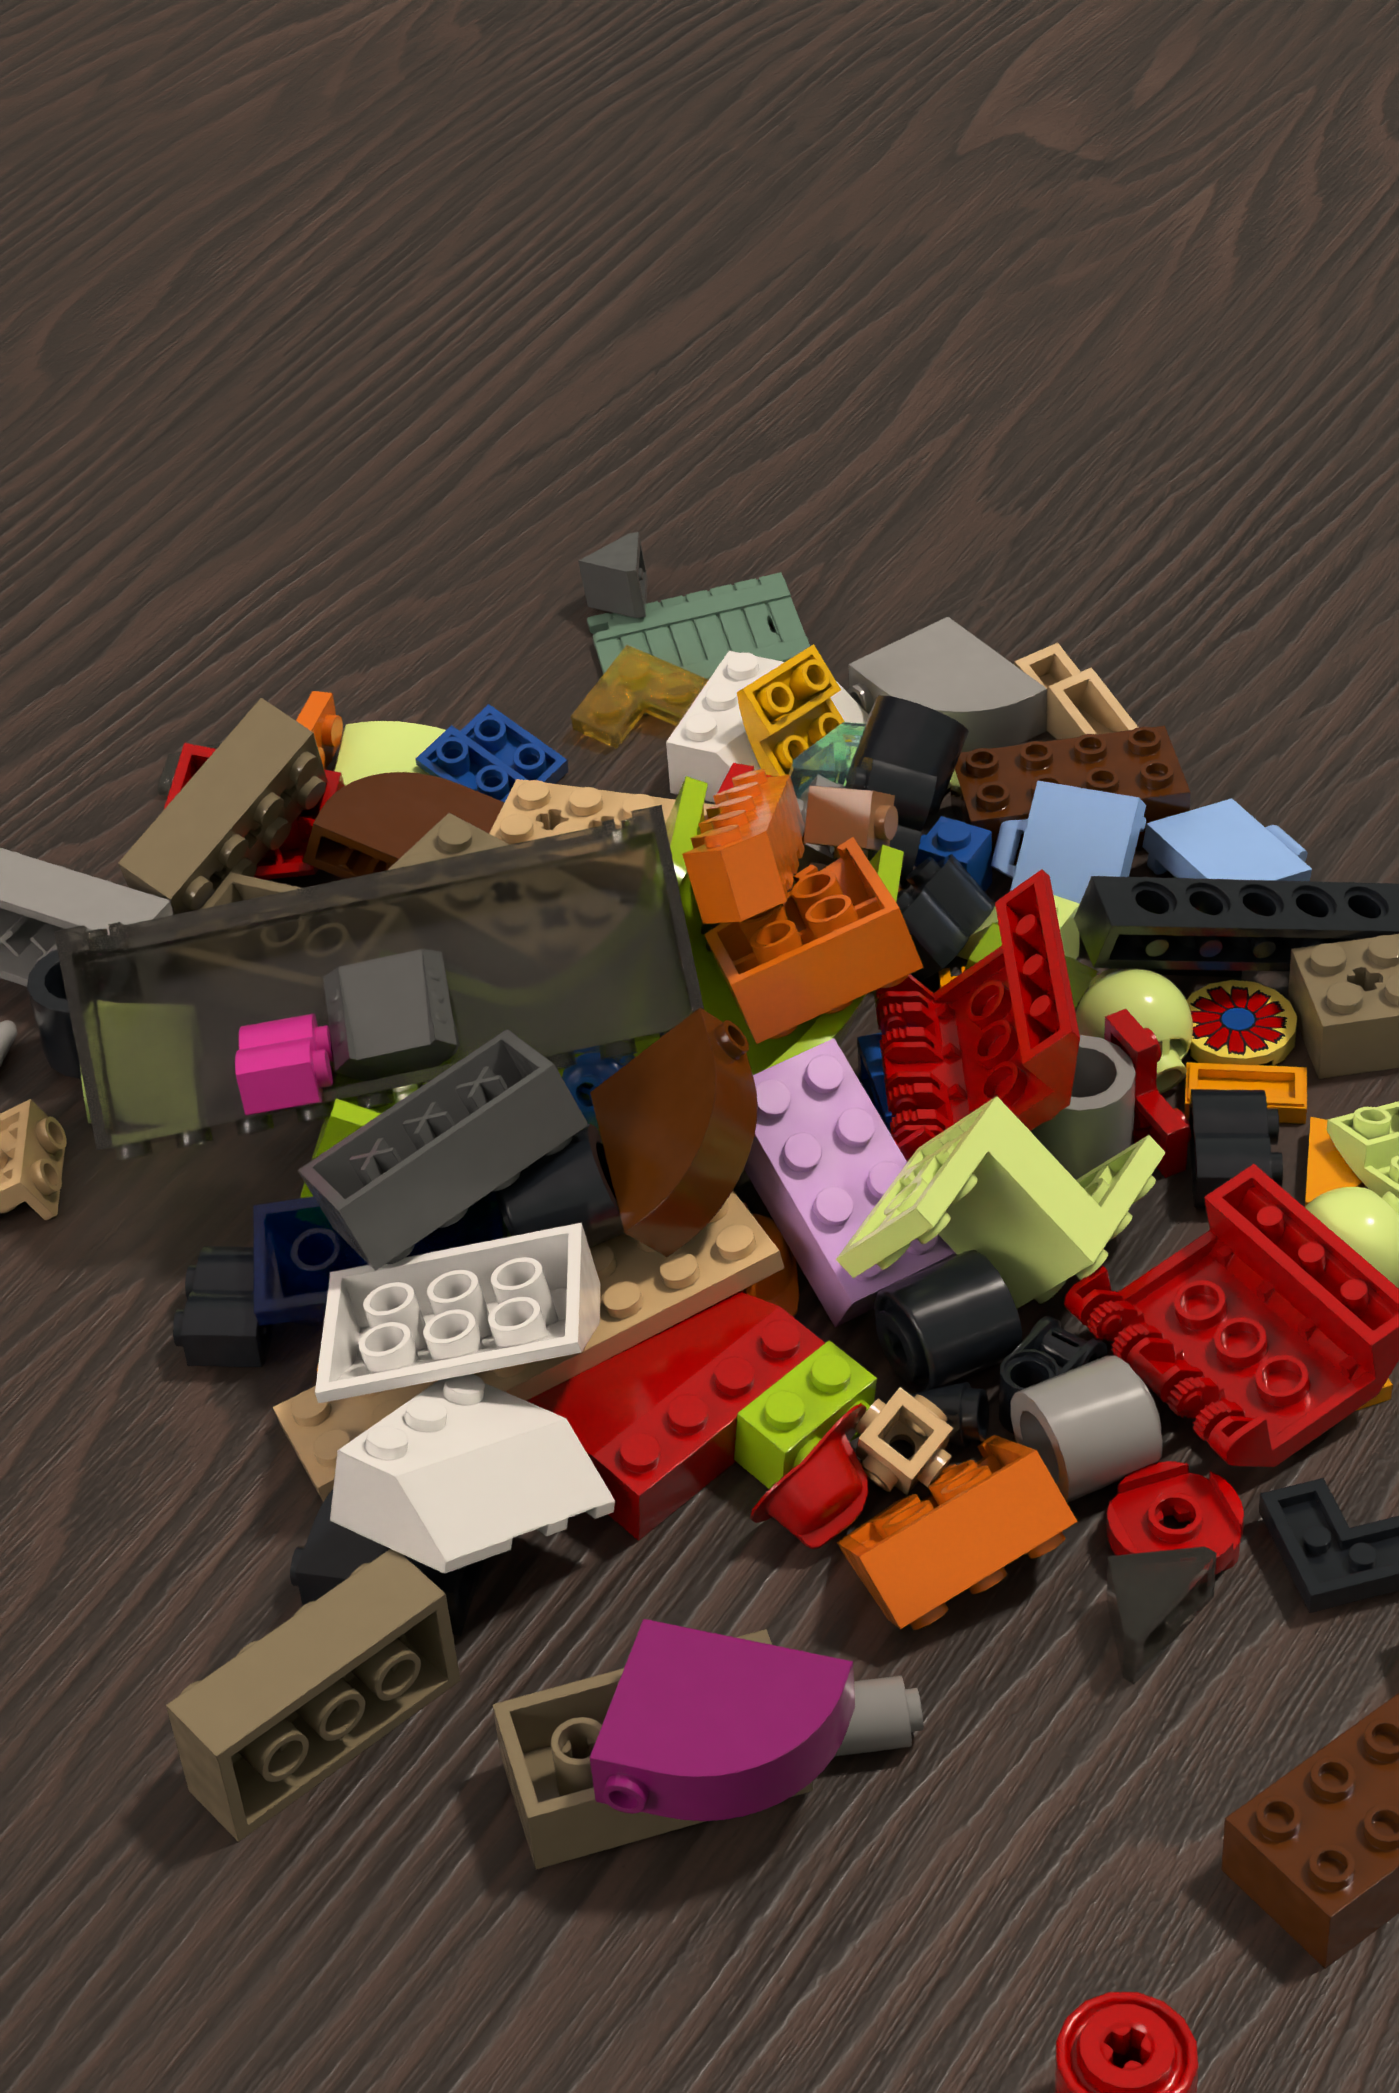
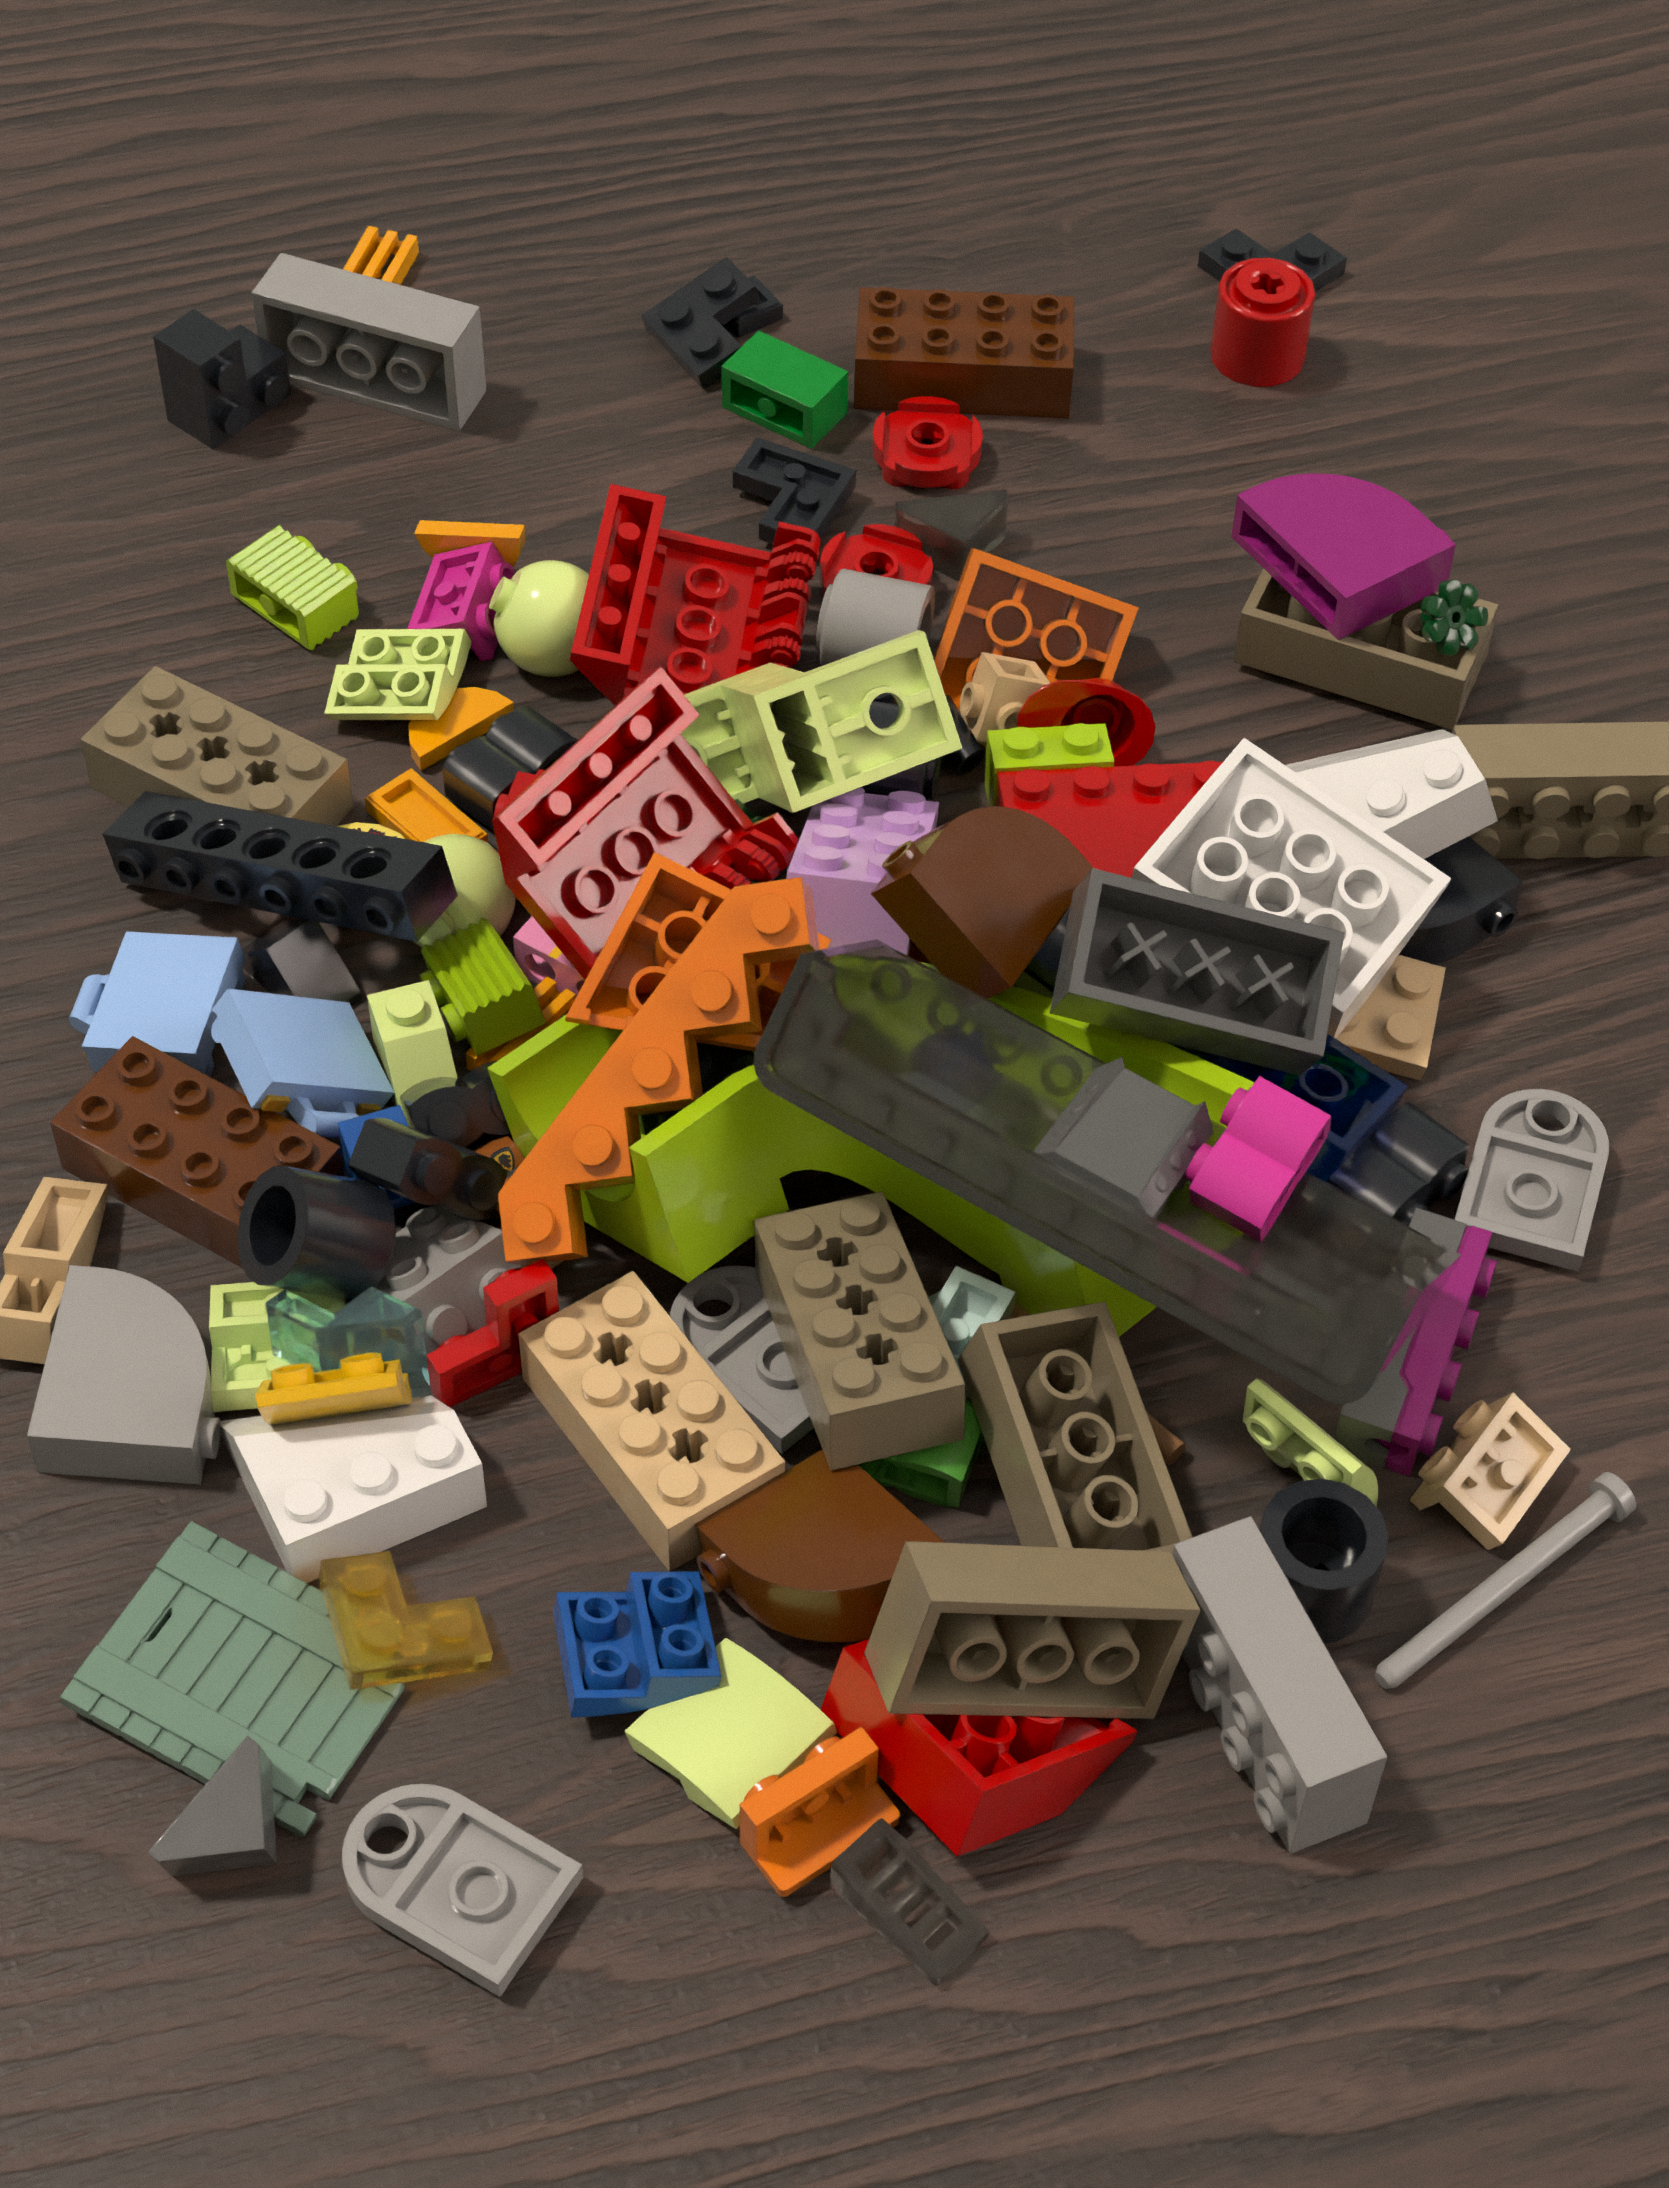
camera: 145 degrees left, 10 degrees up
(119, 1372) = (1536, 1183): none -> light grey plate
(130, 1222) = (1396, 1413): none -> magenta piece
(479, 638) = (460, 1884): none -> light grey plate
(545, 1719) = (1452, 616): none -> dark green plant
(846, 813) = (489, 1126): medium nougat brick -> none
(882, 1716) = (1202, 586): light grey brick -> none
(1288, 1729) = (945, 462): none -> red plate

